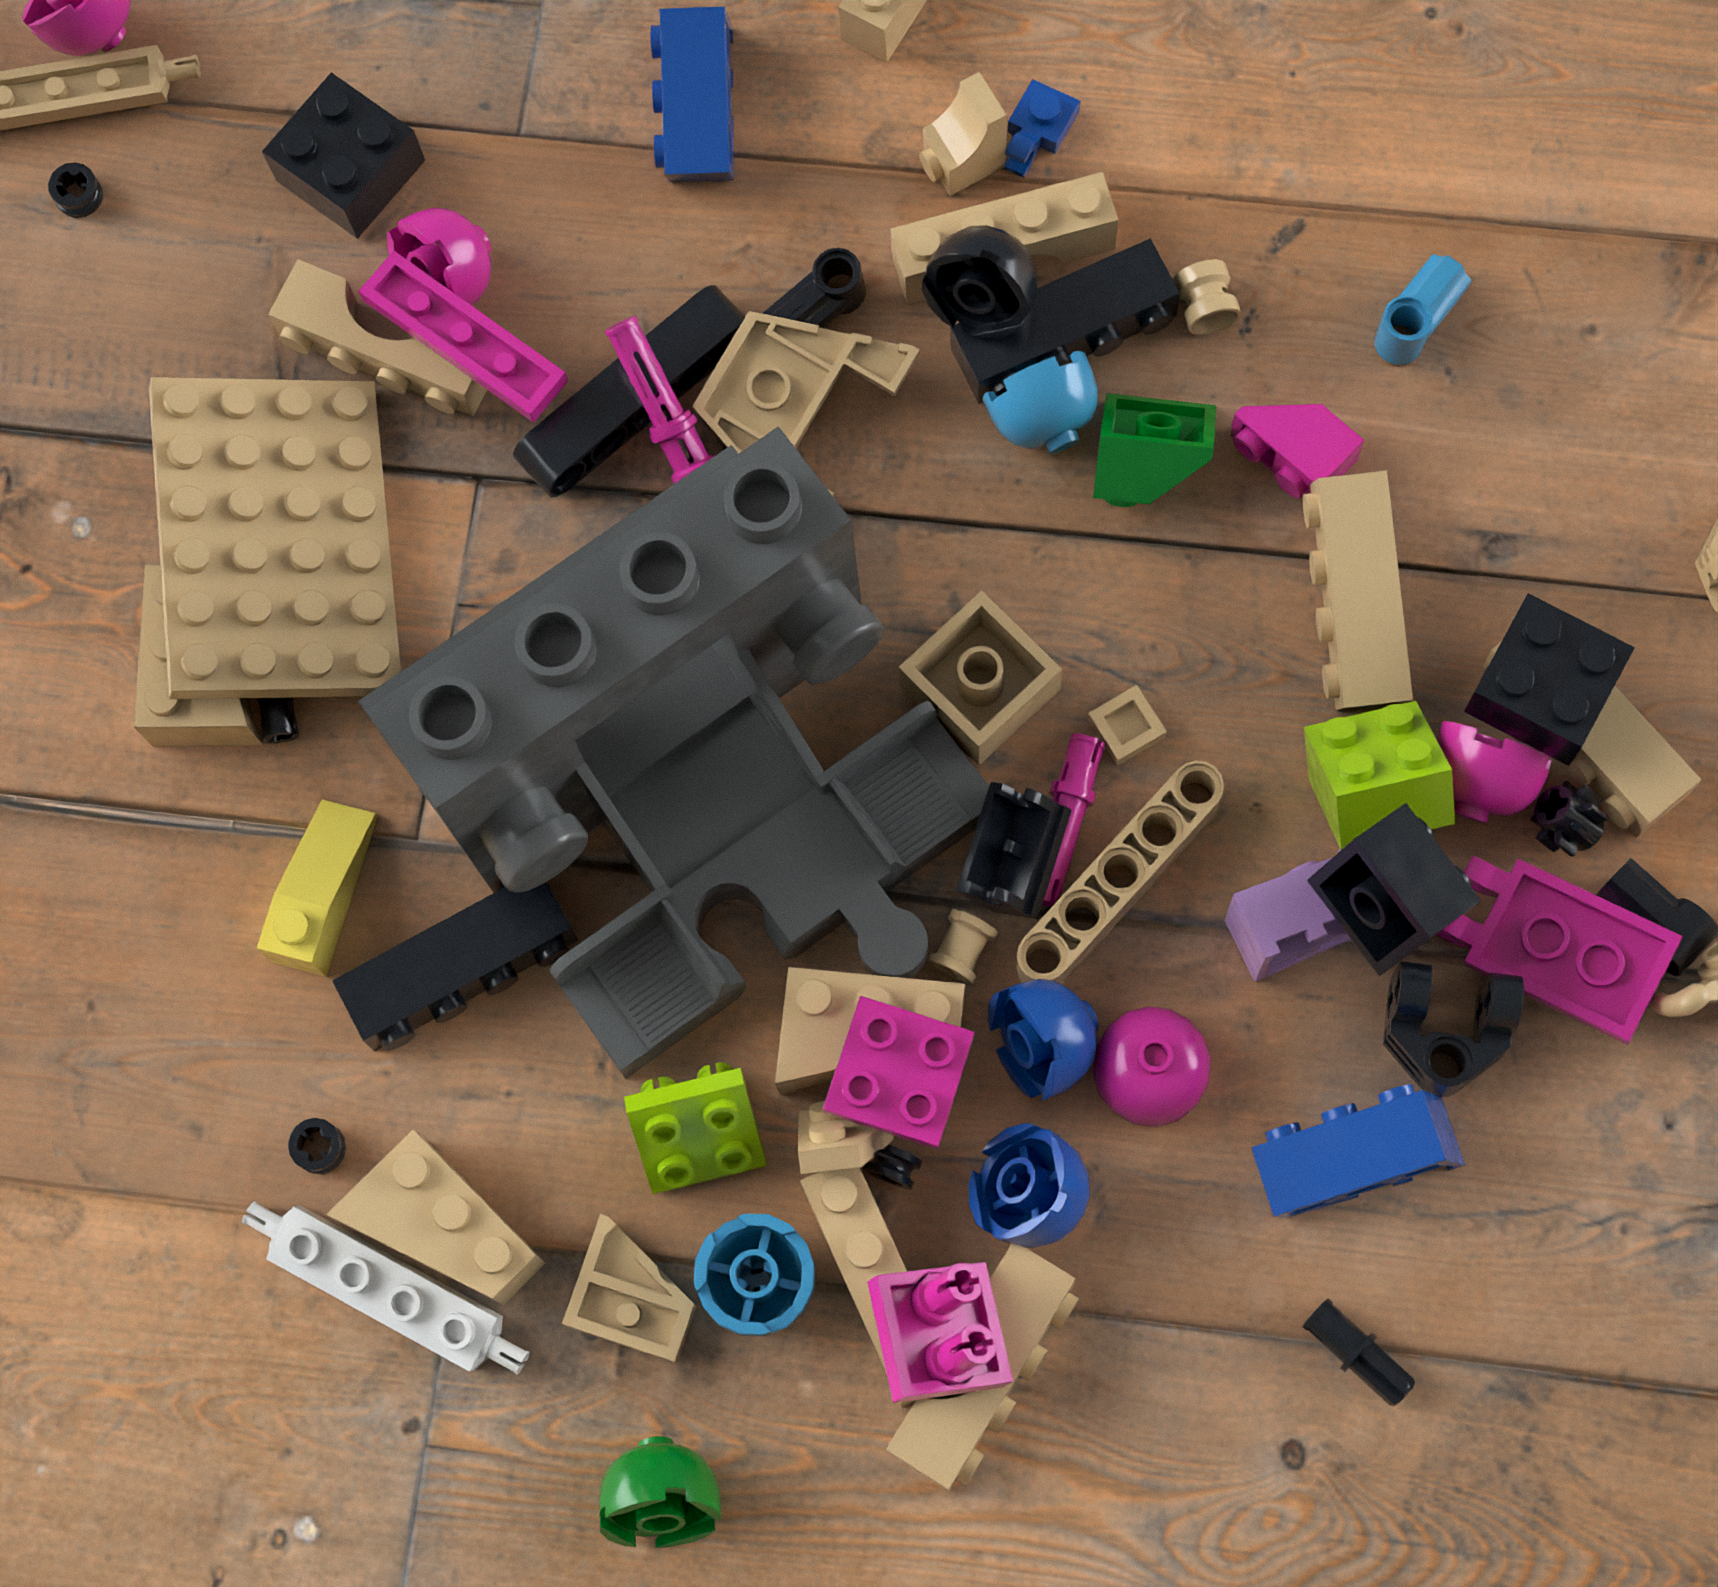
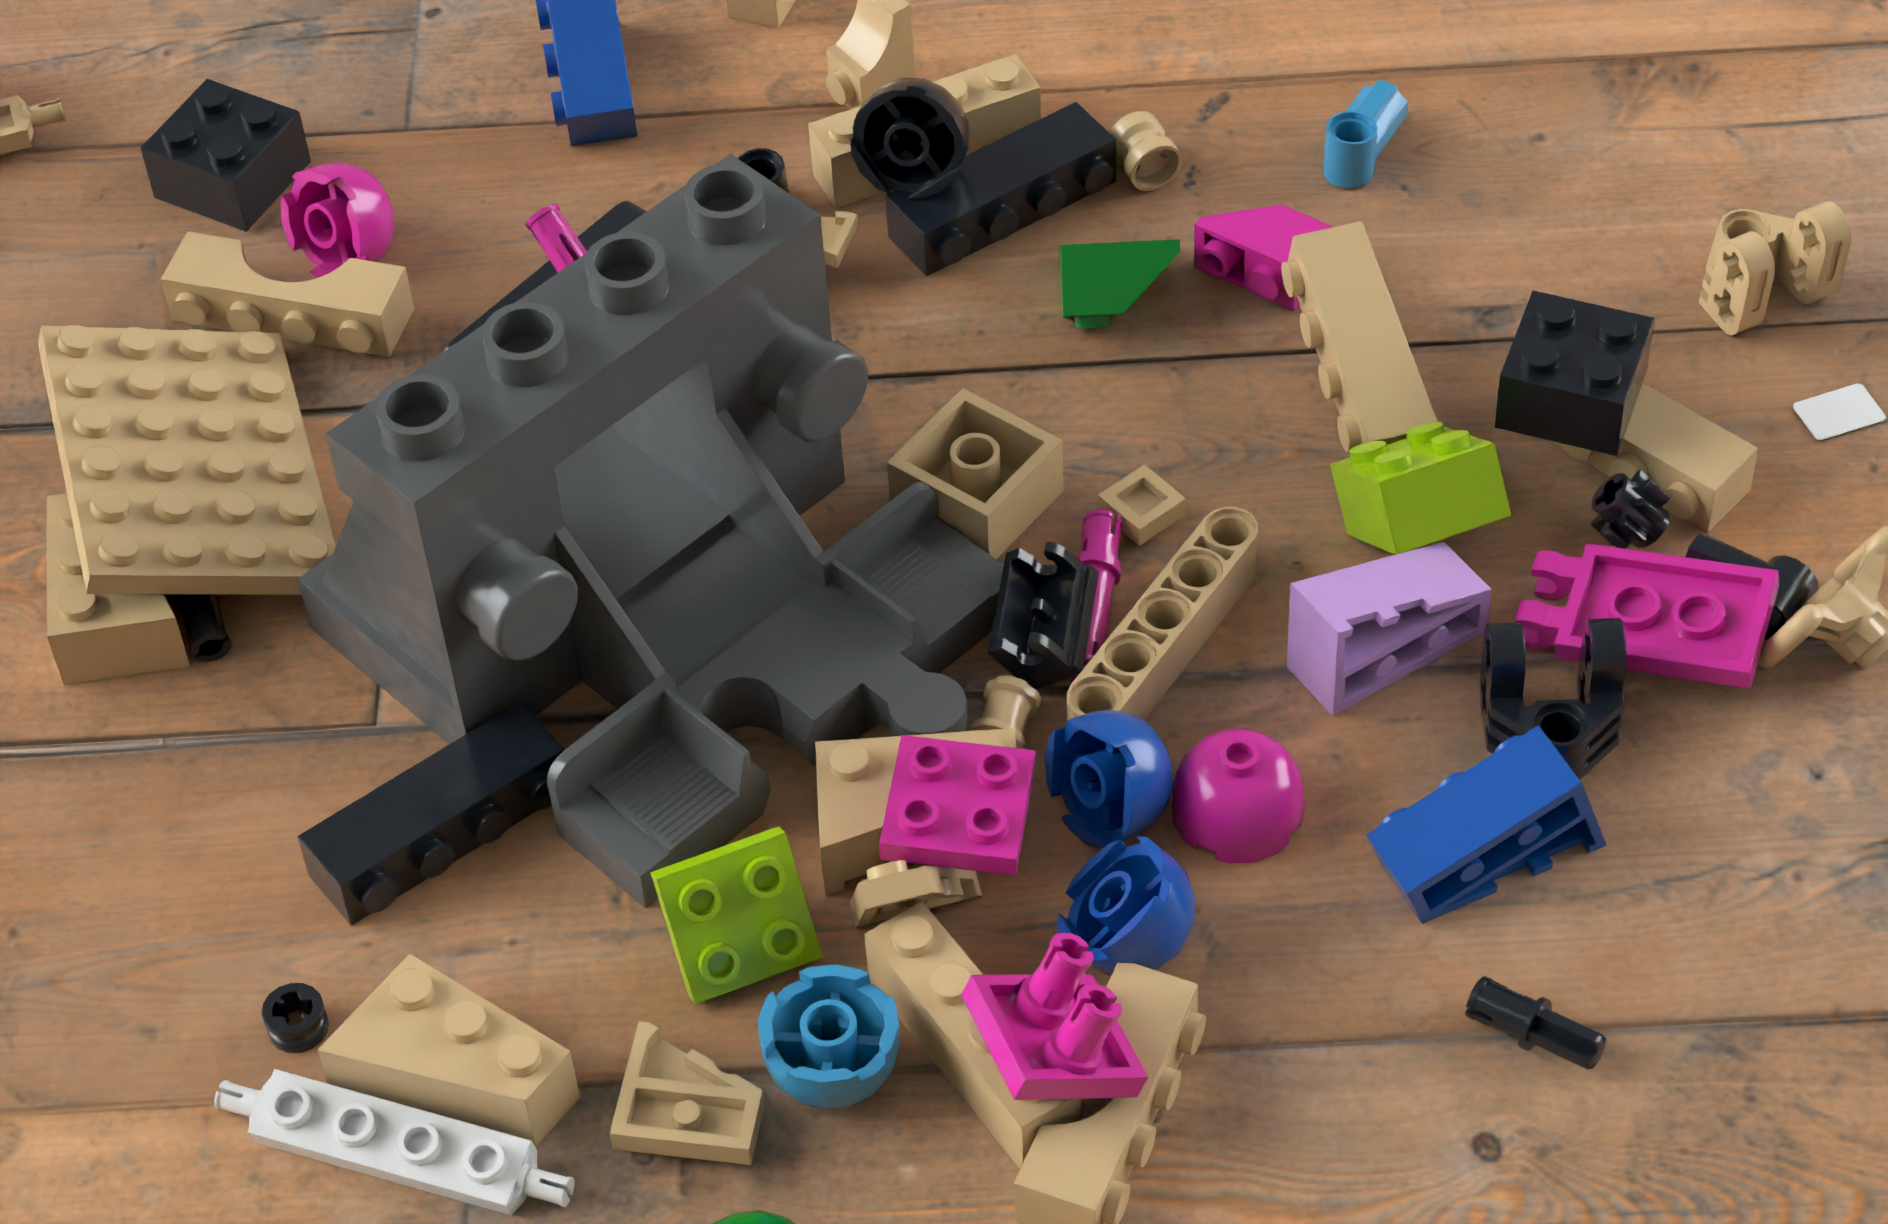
camera: 15 degrees left, 25 degrees down
(317, 889) = (266, 782): light yellow slope -> none
(463, 336) = (375, 259): dark pink plate -> none
(893, 1166) = (971, 925): black bush -> none
(1037, 123) = (945, 45): blue plate -> none
(1045, 404) = (994, 242): dark azure cylinder -> none
(1393, 889) = (1459, 546): black brick -> none
(1490, 772) = (1543, 469): dark pink cylinder -> none

